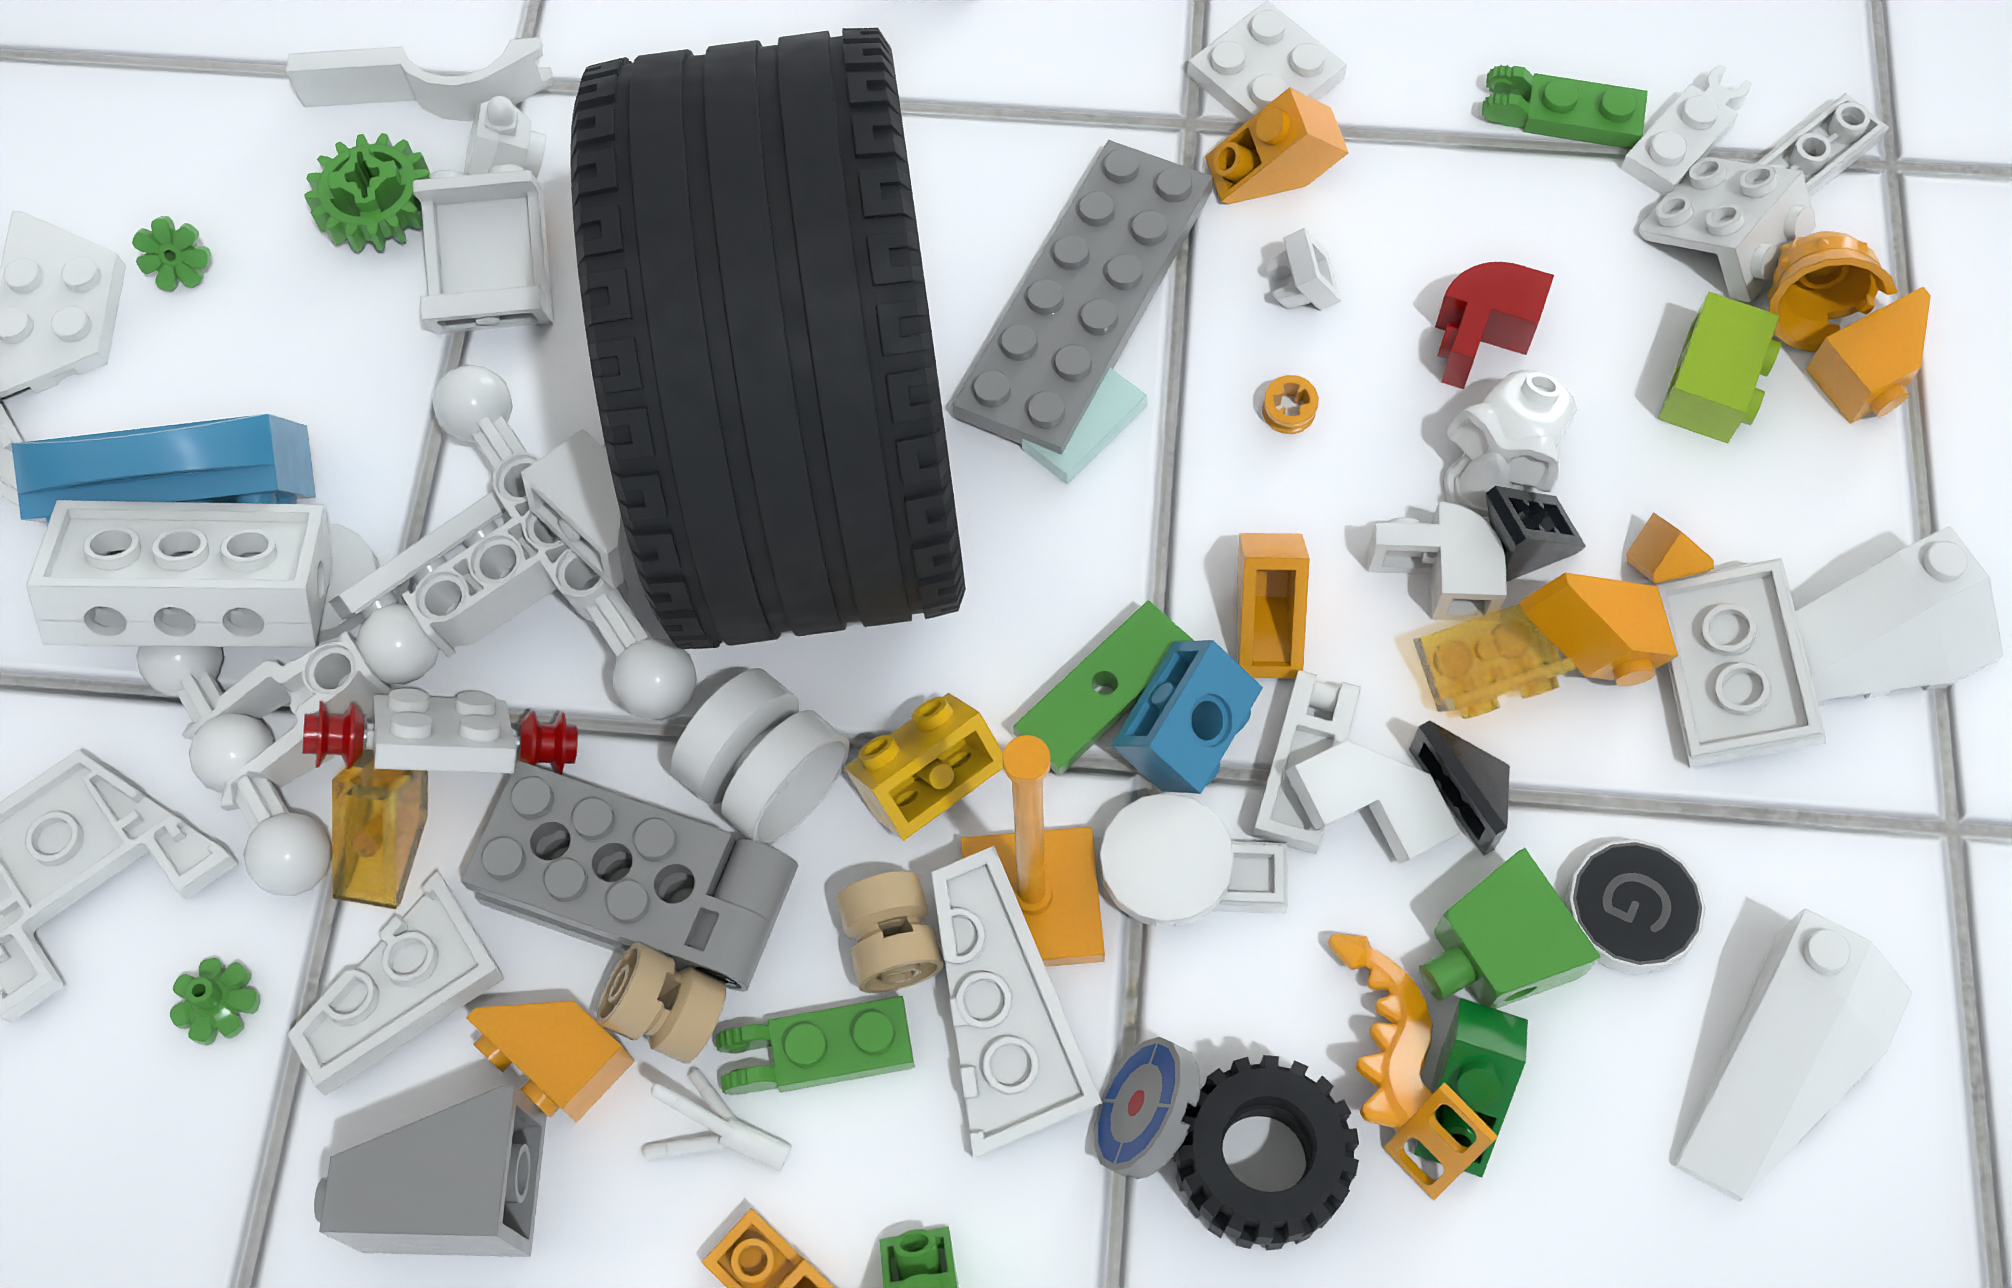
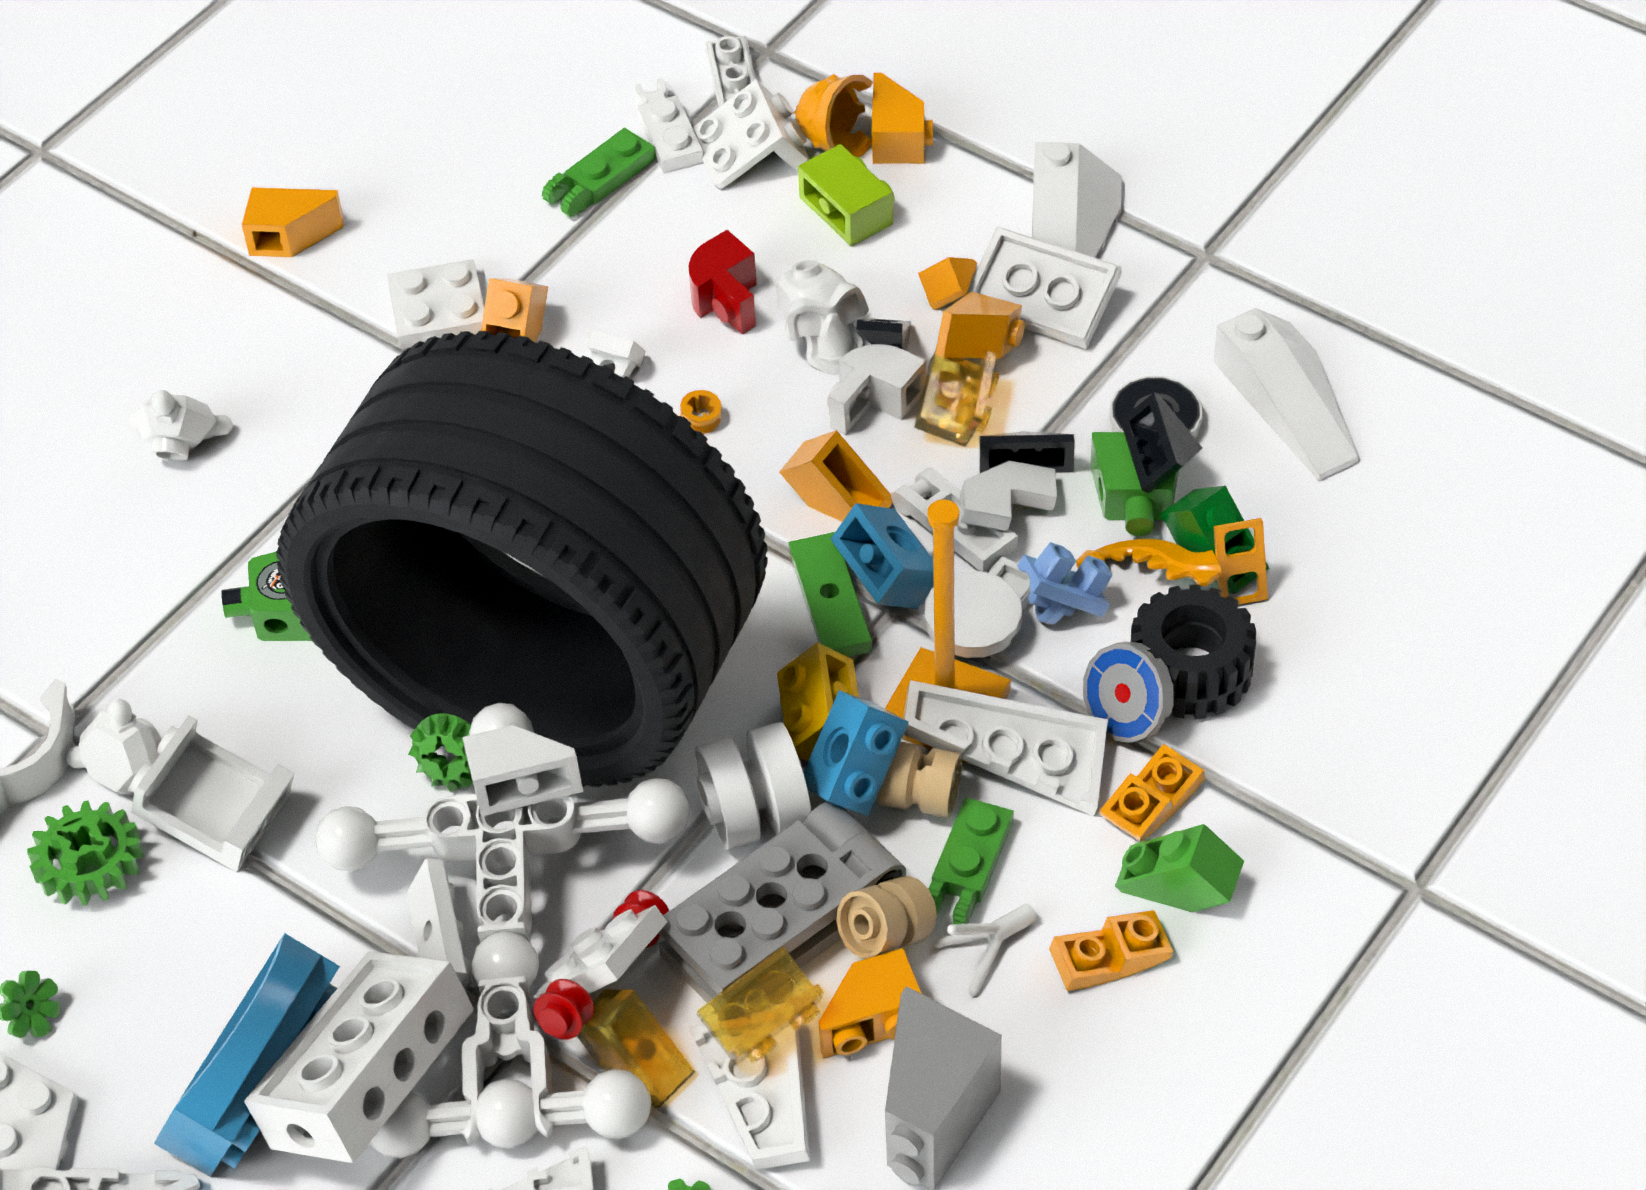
camera: 60 degrees left, 15 degrees down
(457, 938) = (760, 1007): none -> clear yellow bracket
(850, 840) = (853, 752): none -> dark azure brick
(1035, 1215) = (1154, 794): none -> light orange slope
(1267, 940) = (1059, 590): none -> light blue hips
(1550, 941) = (1157, 441): none -> black slope

